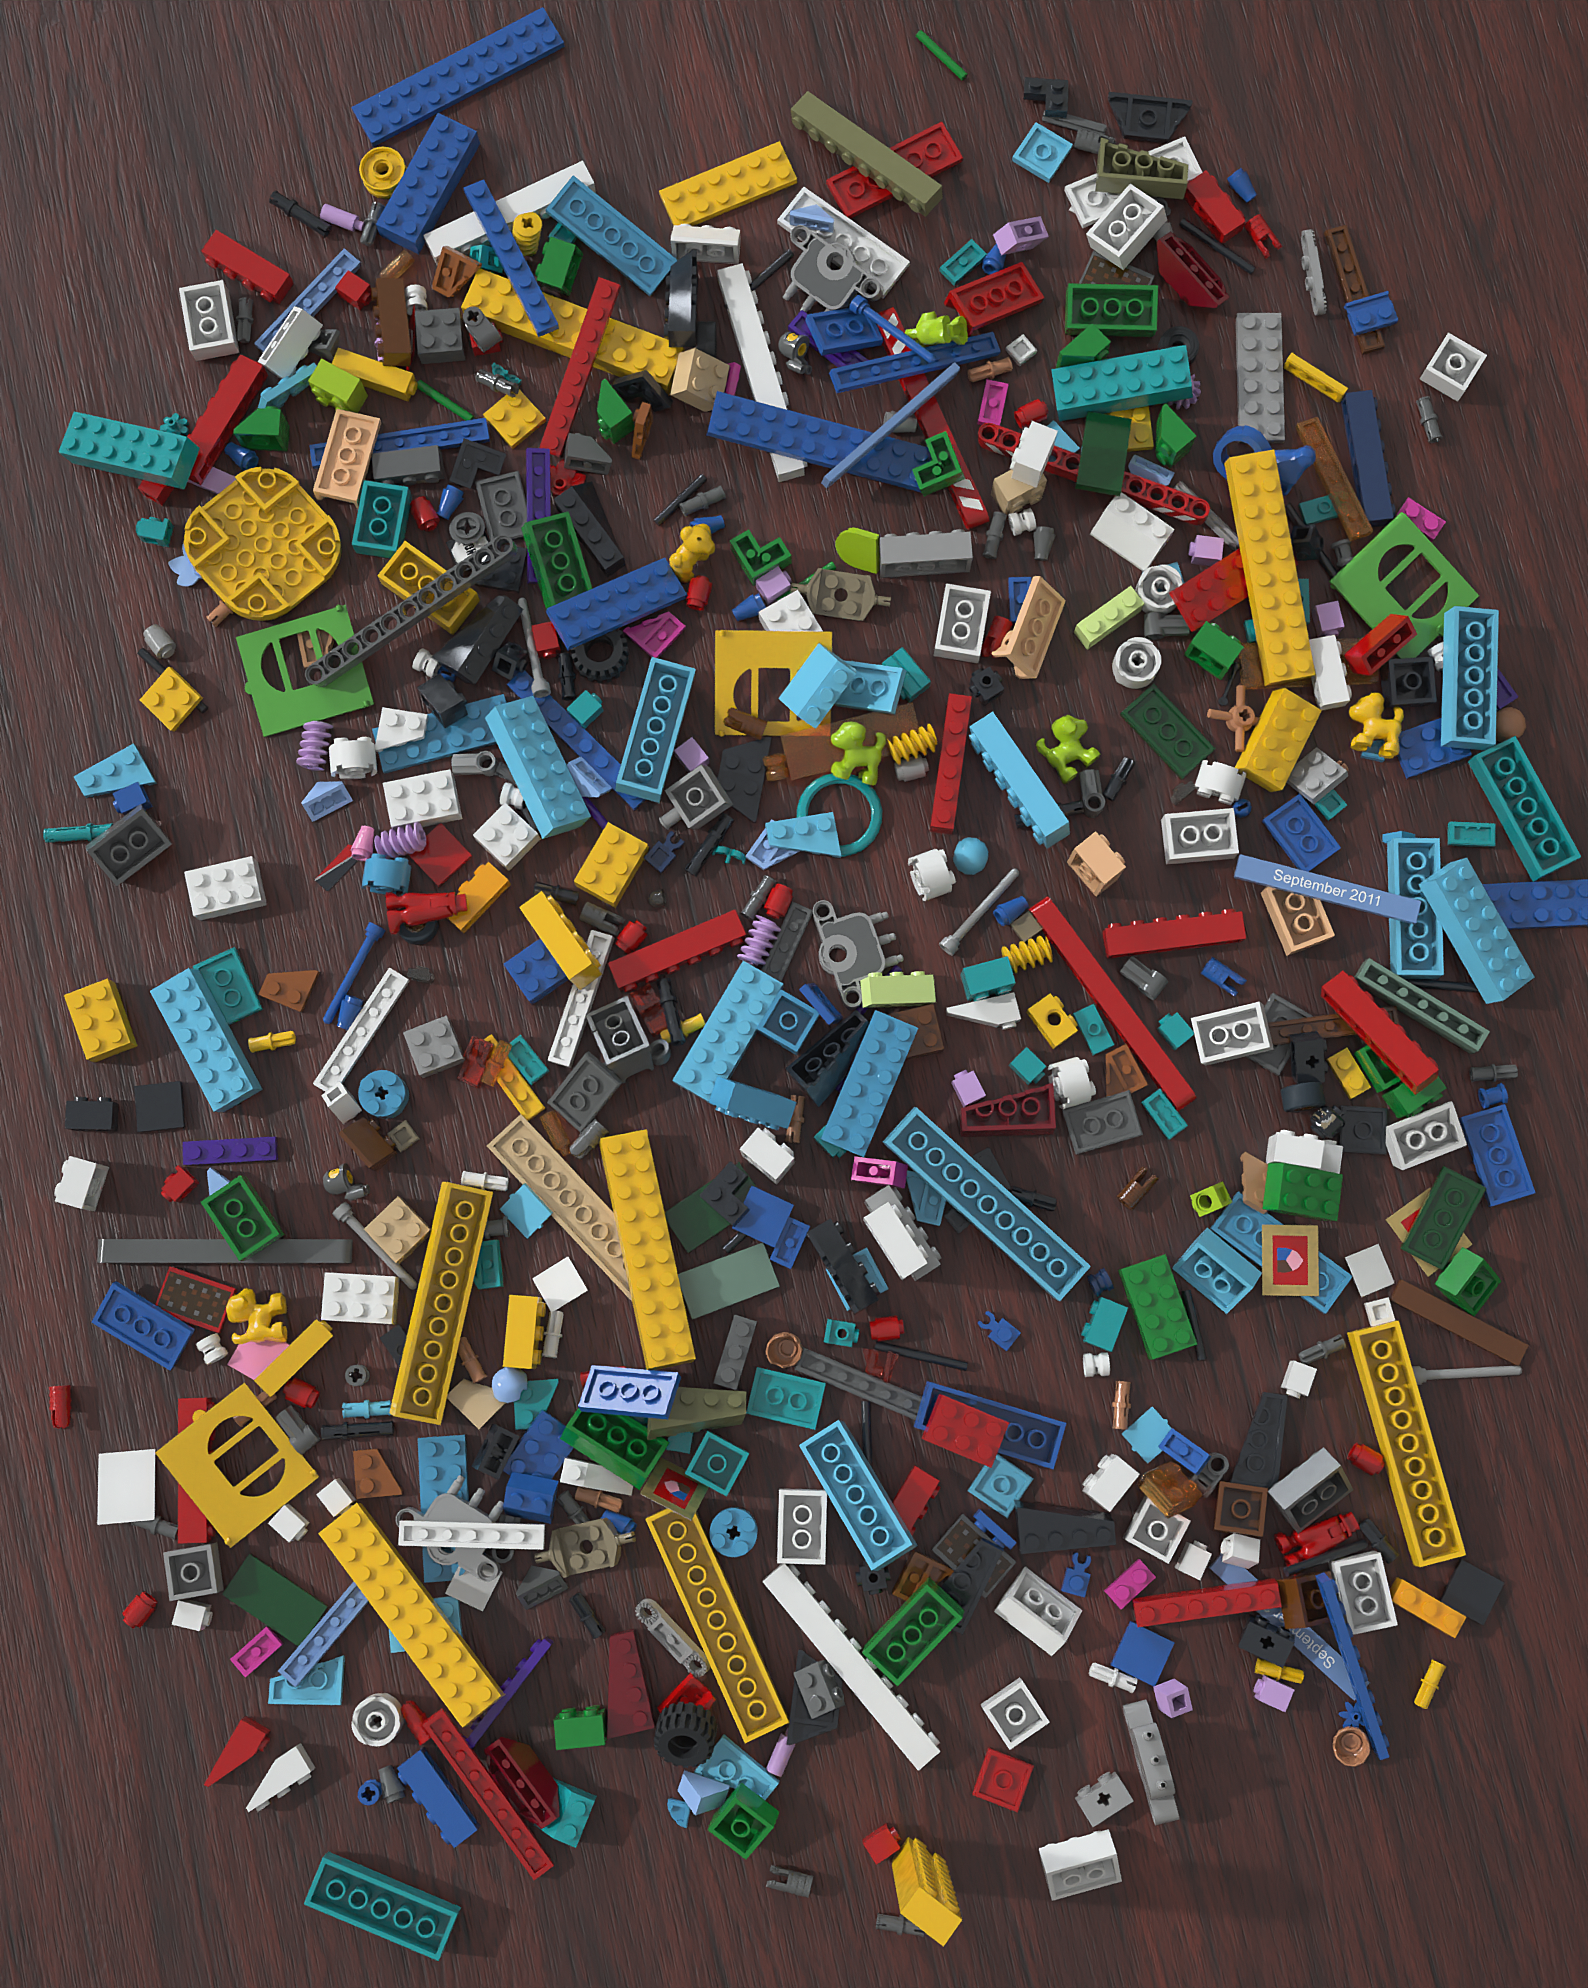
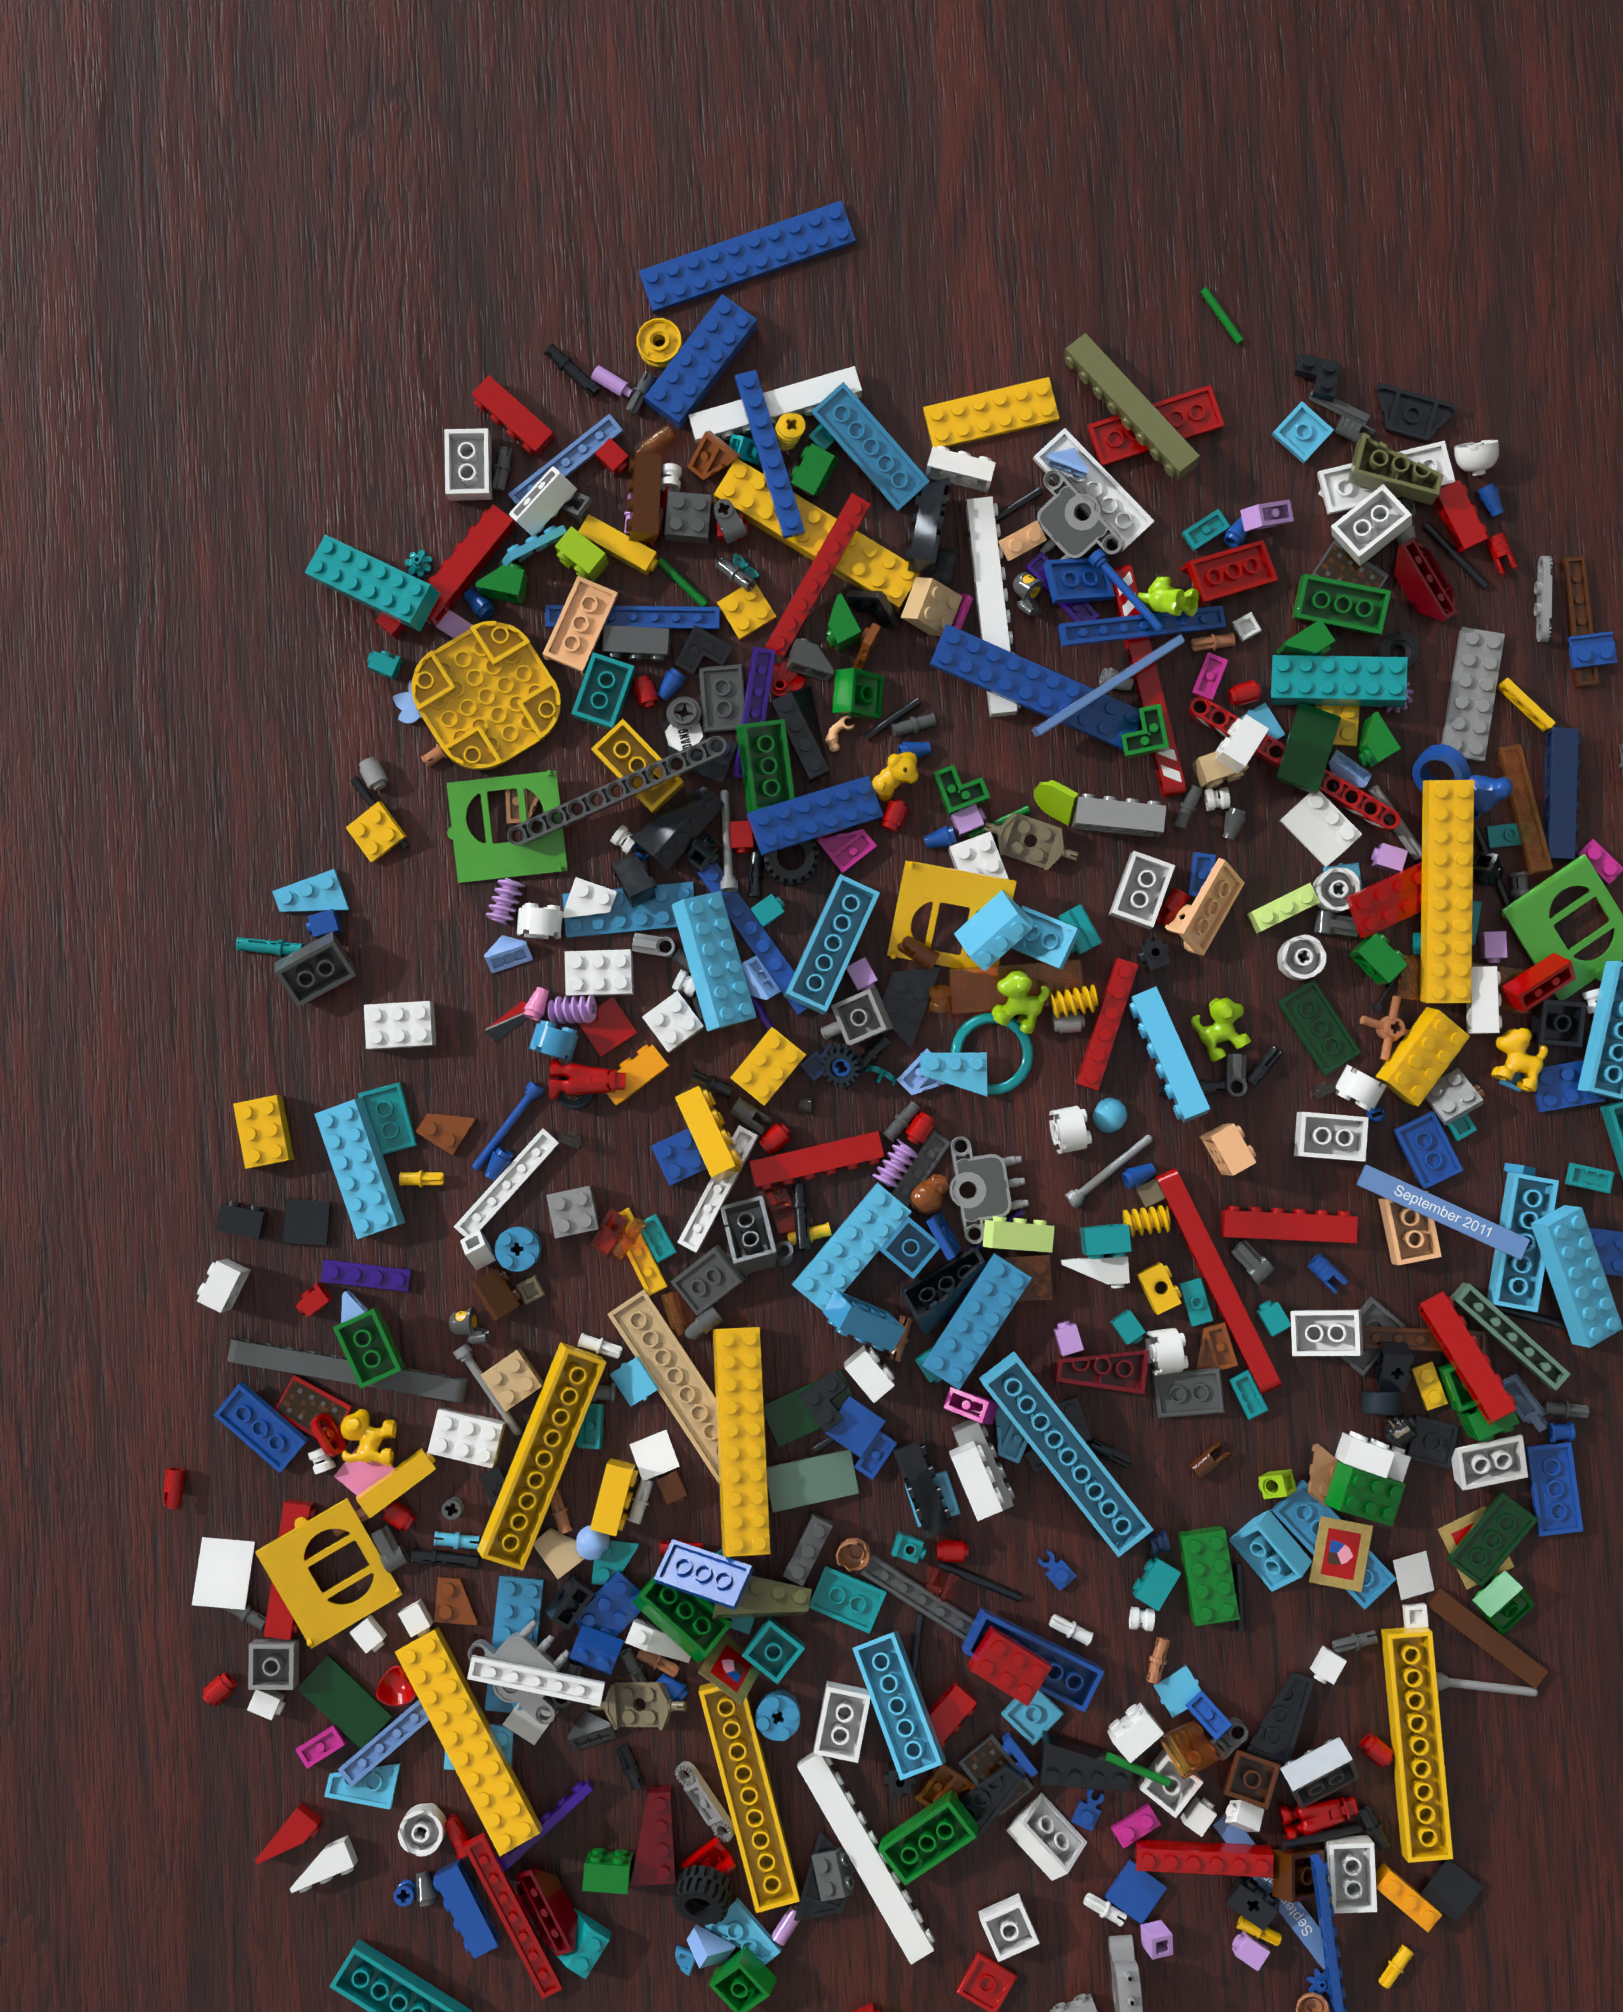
camera: 10 degrees right, 5 degrees up
(214, 1320) = (327, 1435): none -> red plate
(326, 1574) = (395, 1688): none -> red helmet
(584, 1313) = (672, 1487): none -> reddish brown brick
(622, 527) = (832, 736): none -> light nougat piece
(640, 479) = (858, 693): none -> green slope
(694, 841) = (851, 1061): none -> black bush
(780, 301) = (1022, 540): none -> light nougat plate
(799, 966) = (929, 1194): none -> dark orange hair
(1025, 1389) = (1071, 1629): none -> white axle
(1119, 1518) = (1137, 1769): none -> green bar
(1220, 145) = (1477, 456): none -> white cylinder
(1451, 1073) = (1526, 1404): none -> sand blue hinge

